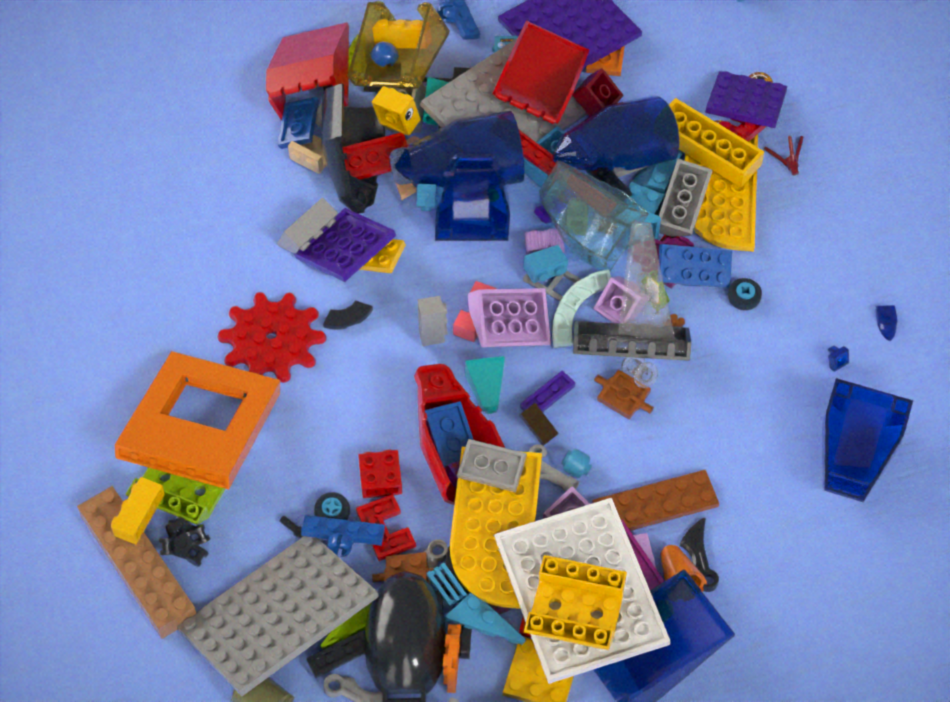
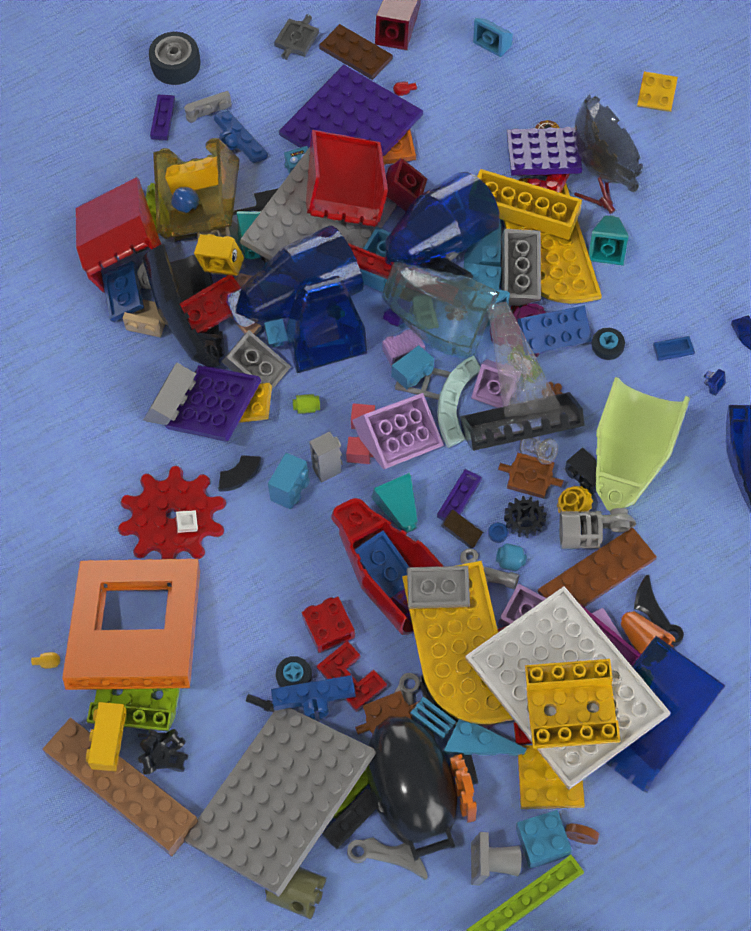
camera: 15 degrees left, 5 degrees up
(110, 431) = (46, 660): none -> yellow cylinder
(281, 343) = (186, 521): none -> white plate
(389, 334) = (288, 481): none -> dark azure brick
(400, 215) = (256, 358): none -> light grey slope
(433, 270) = (306, 403): none -> lime brick
(573, 438) = (497, 532): none -> blue tile
(604, 429) = (526, 524): none -> black gear
(633, 7) = (403, 88): none -> red cylinder
(657, 431) = (575, 499): none -> yellow piece
(664, 455) = (592, 527): none -> light grey cylinder
(677, 403) = (583, 469): none -> black slope
(731, 389) = (634, 443): none -> yellowish green windscreen
(778, 199) = (609, 241): none -> teal slope
(808, 108) = (605, 146): none -> clear smoke windscreen
(808, 316) = (673, 348): none -> blue tile
(881, 72) = (657, 91): none -> yellow plate

